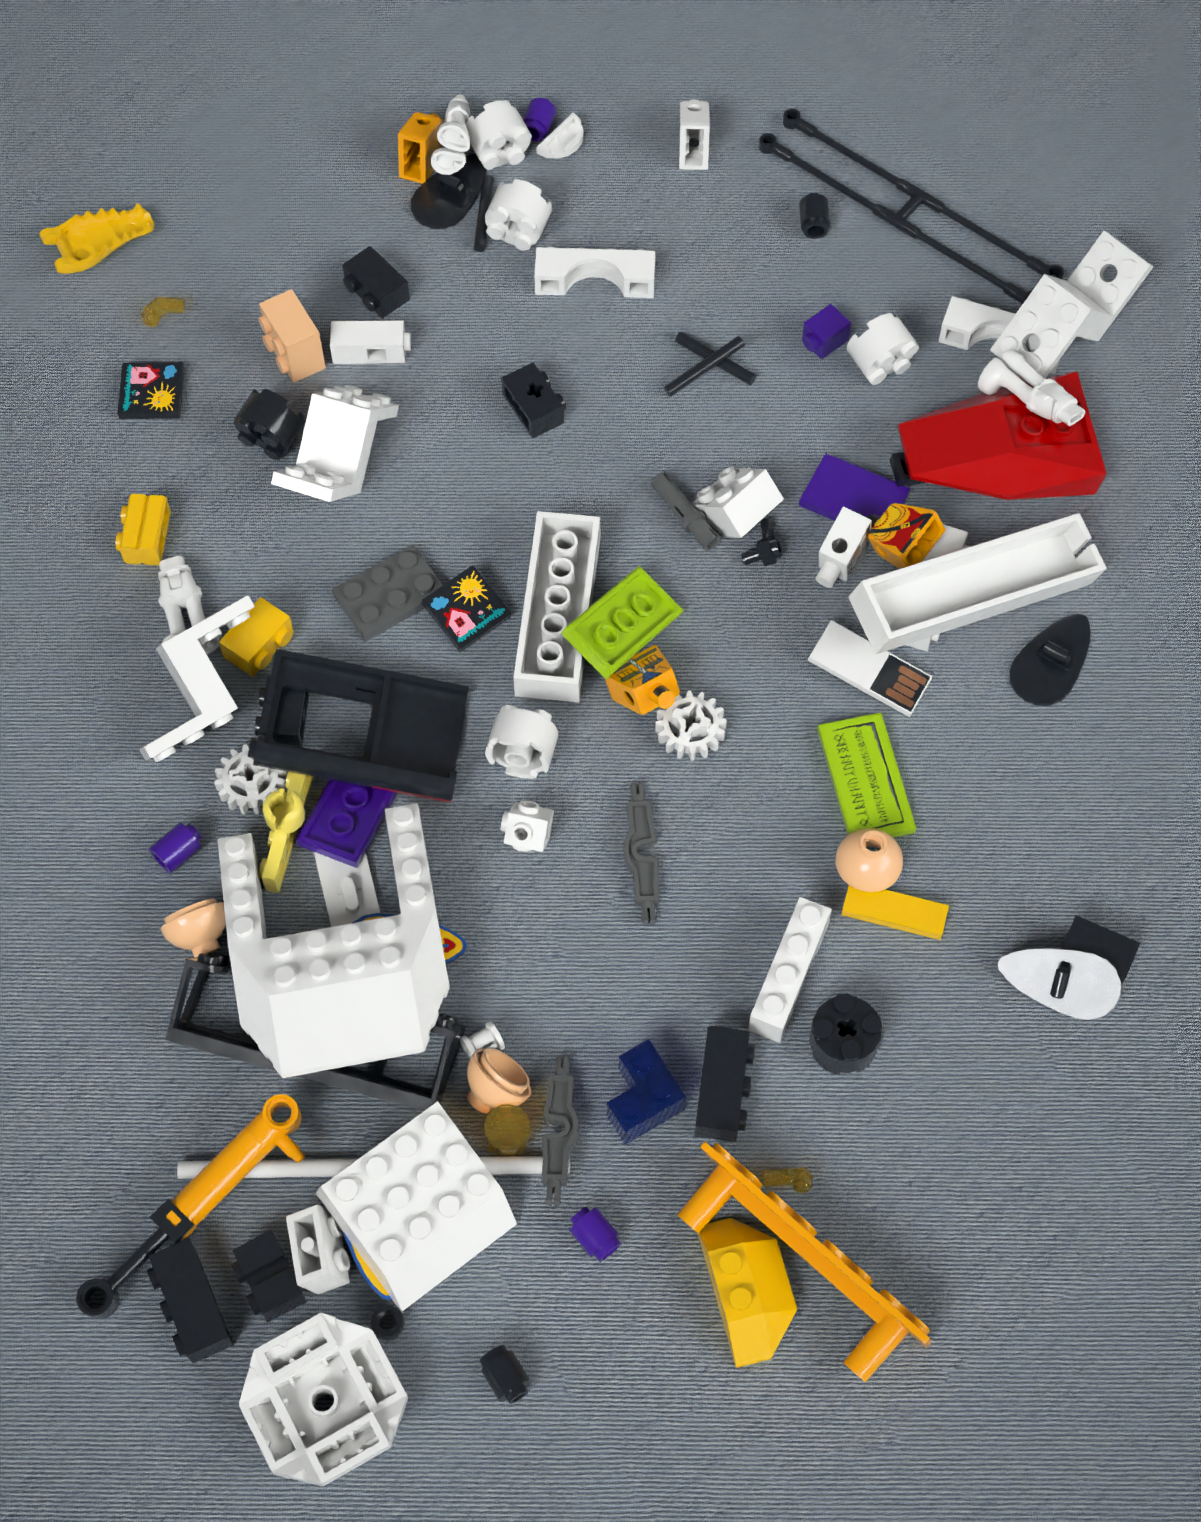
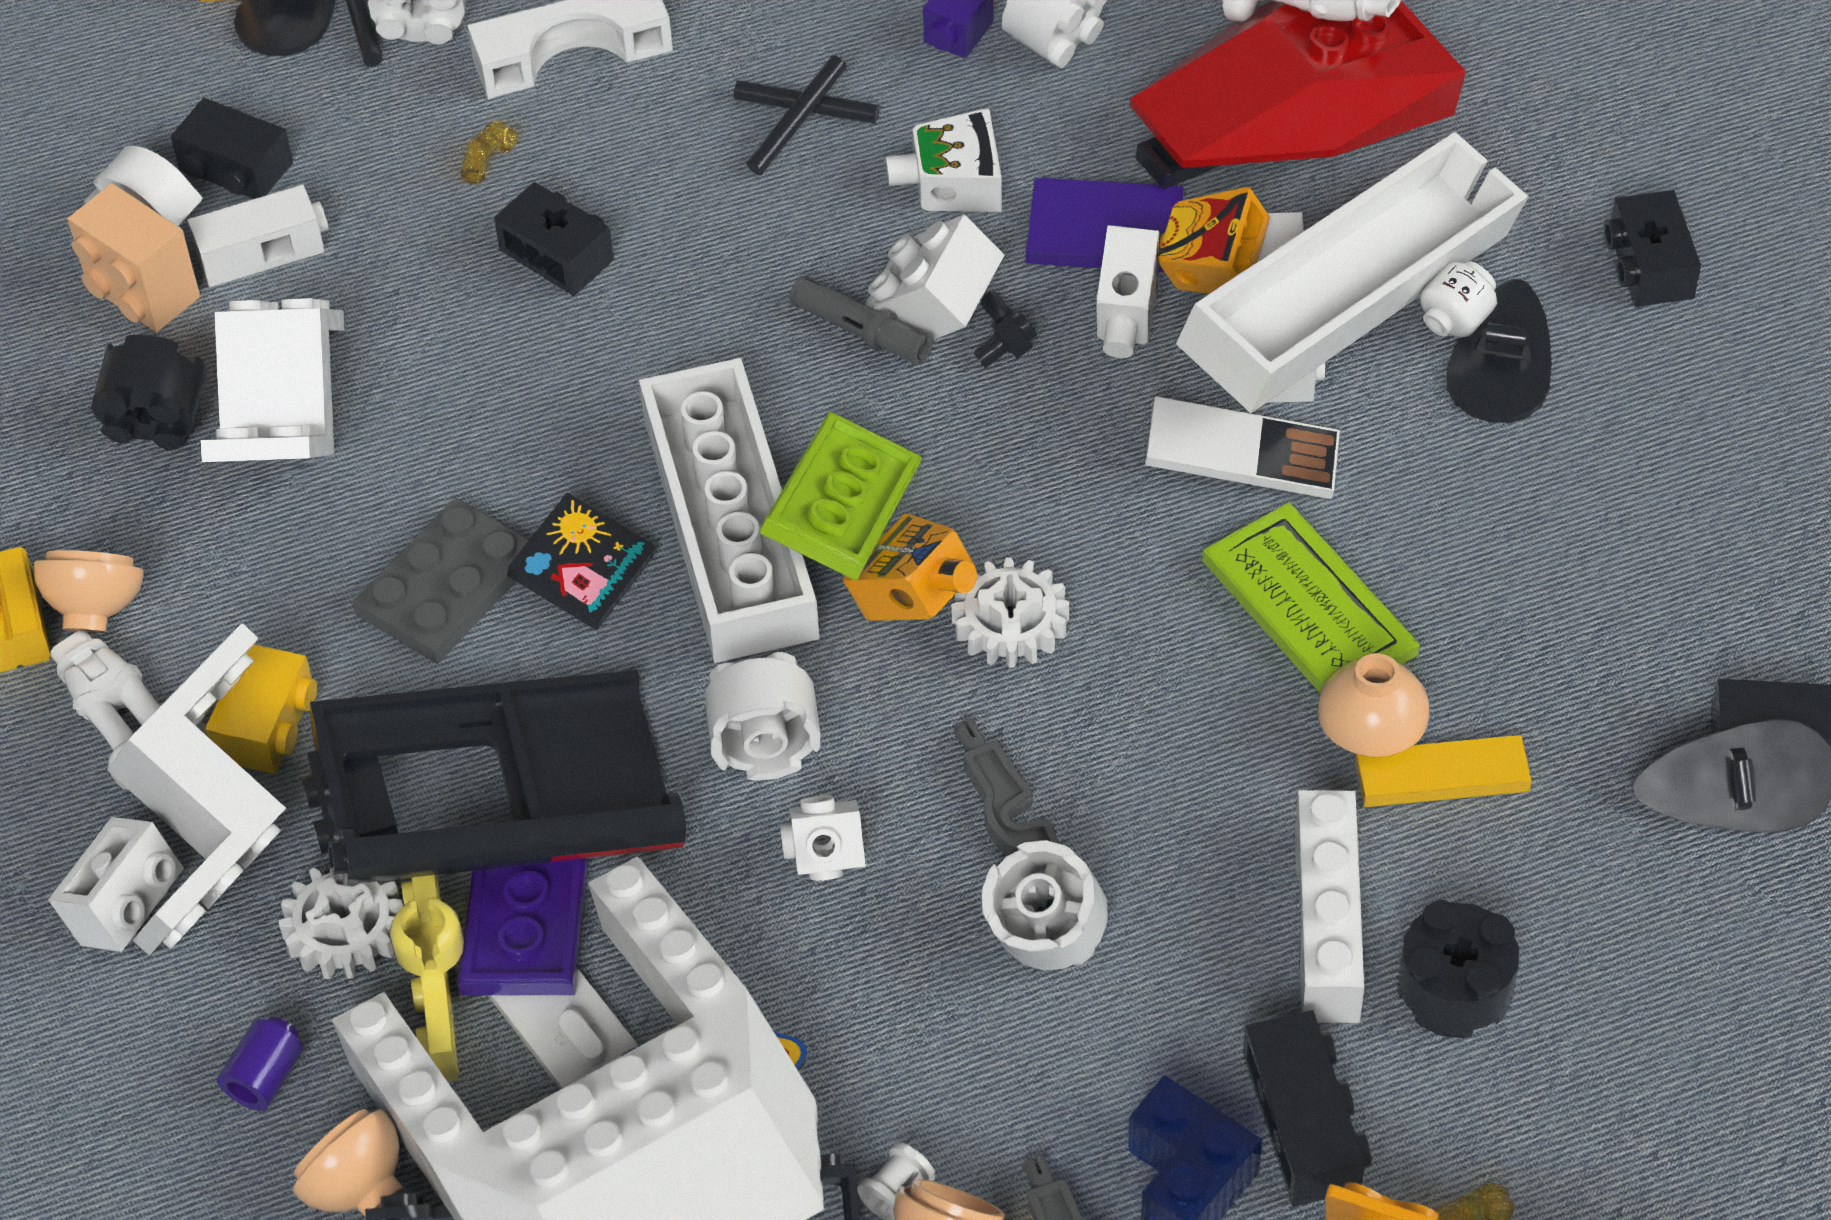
camera: 20 degrees left, 10 degrees down
(138, 716) = (116, 884): none -> white brick
(191, 532) = (87, 586): none -> light nougat piece
(317, 294) = (150, 181): none -> white brick
(516, 326) = (482, 145): none -> clear yellow arm
(643, 924) = (1064, 931): none -> white brick
(780, 428) = (952, 164): none -> white torso
(1037, 619) = (1458, 299): none -> white head
(1172, 624) = (1653, 248): none -> black brick

